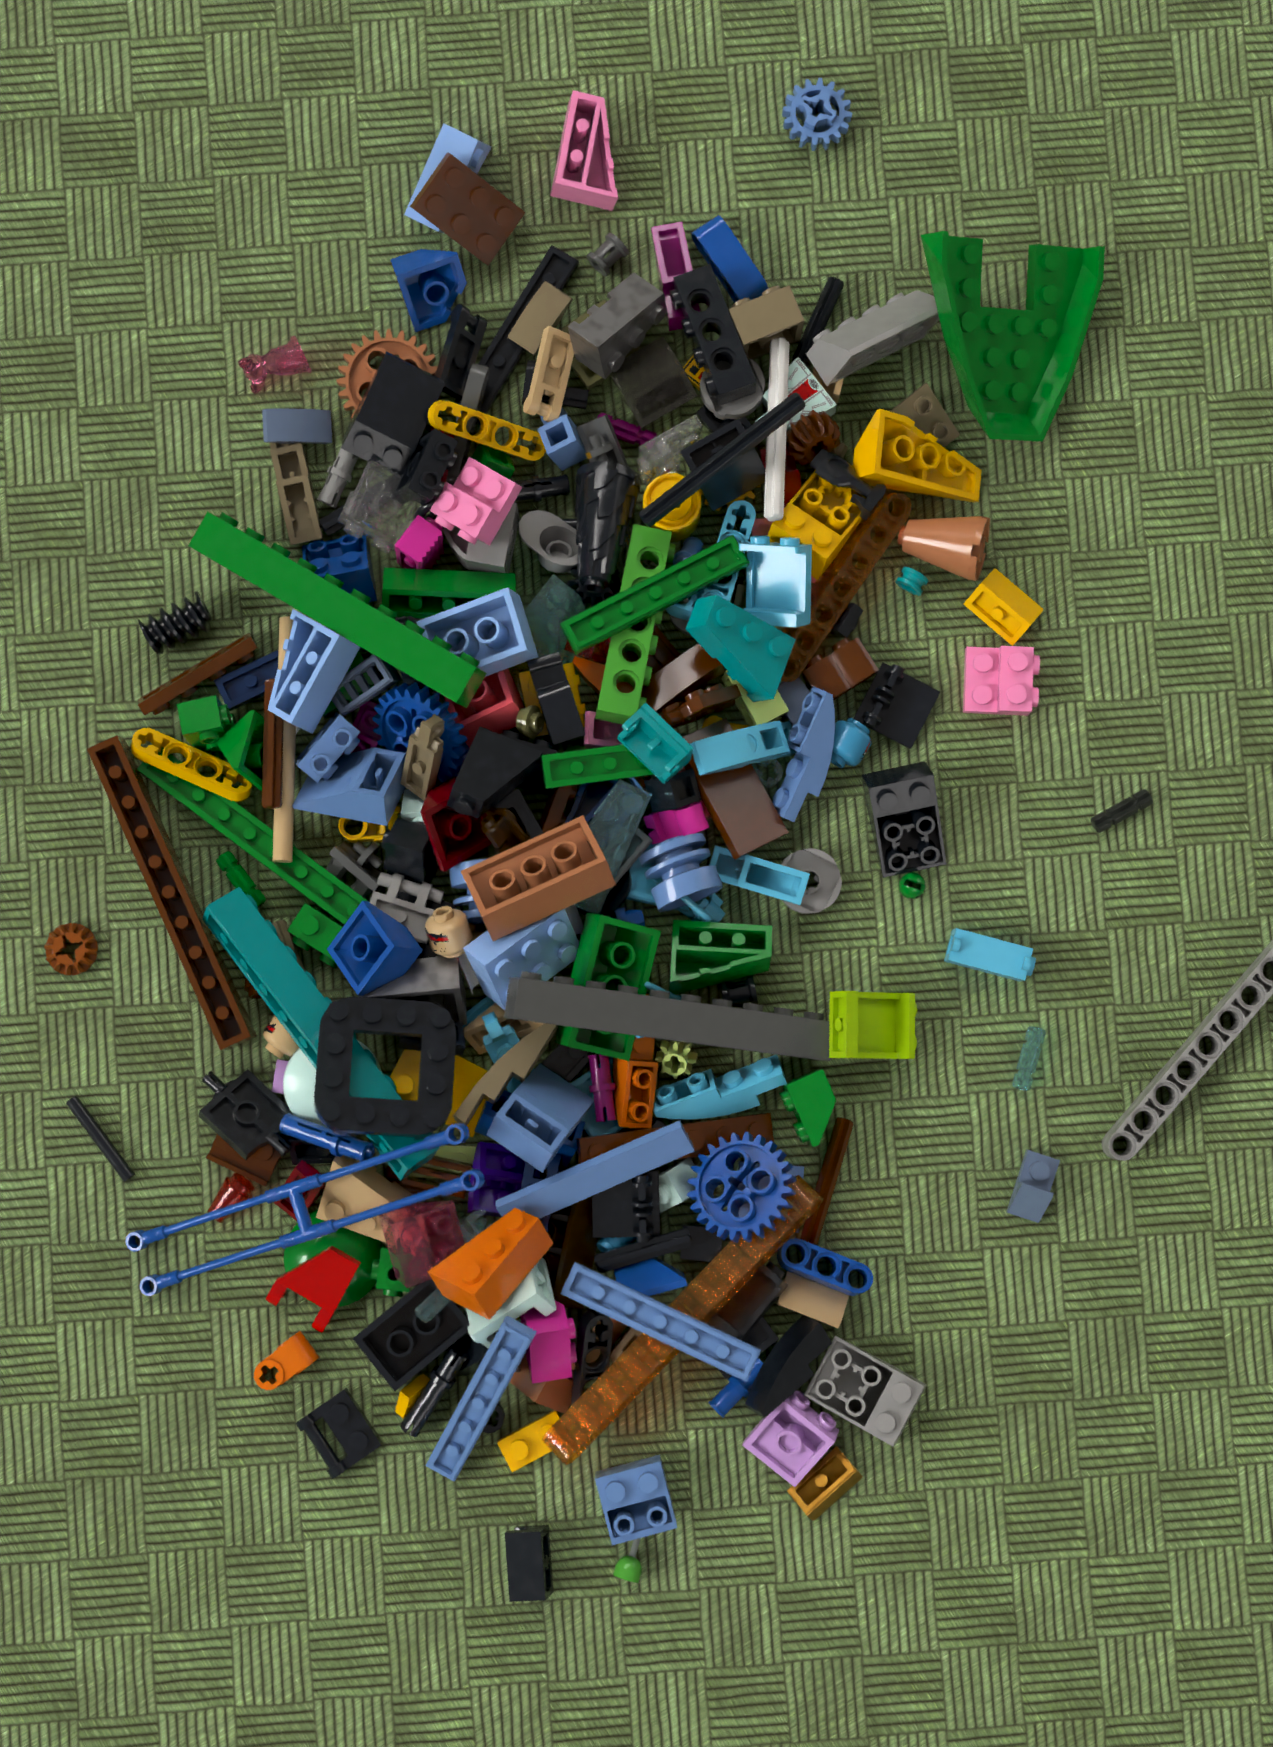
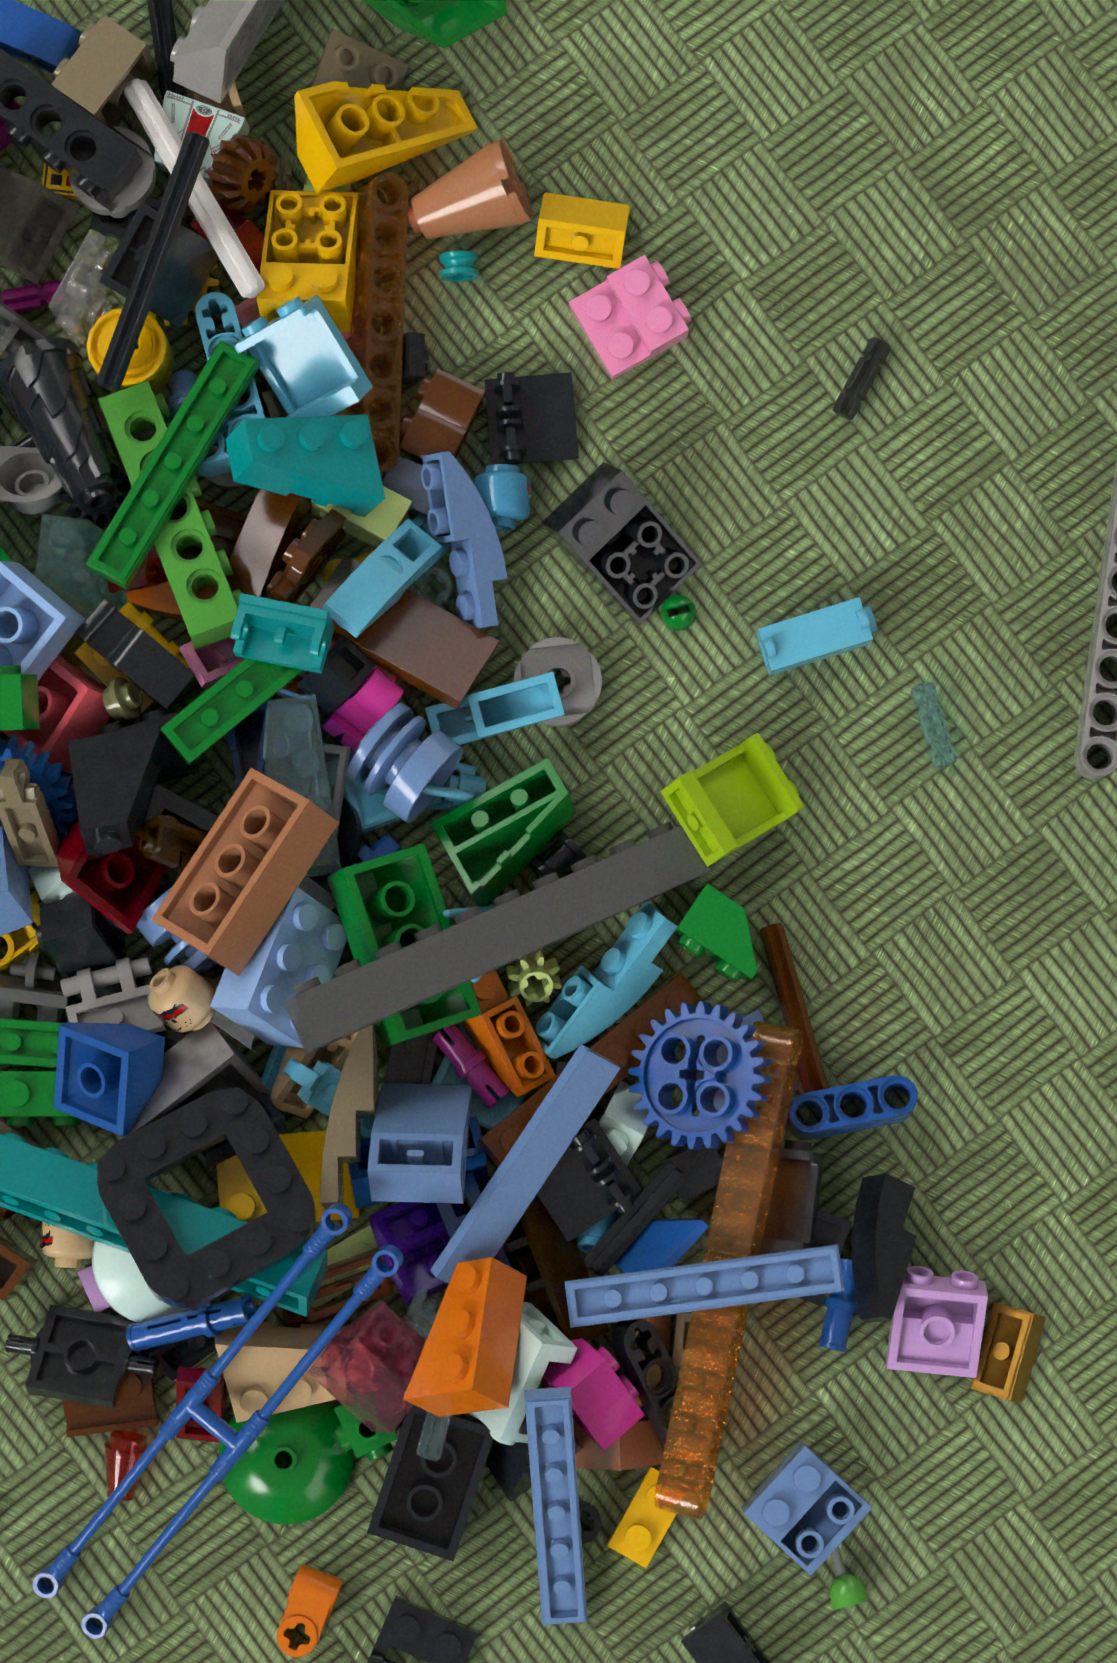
camera: 35 degrees left, 0 degrees up
(319, 1280) = (286, 1492): red flag -> none
(410, 1394) = (476, 1554): yellow tile -> none
(441, 1379) = (498, 1515): black pin -> none
(555, 805) = (214, 783): reddish brown plate -> none
(813, 1300) = (863, 1153): tan slope -> none
(842, 474) = (302, 193): black piece -> none
(865, 1390) = (986, 1217): light grey slope -> none
(1033, 1186) = (1029, 866): sand blue slope -> none

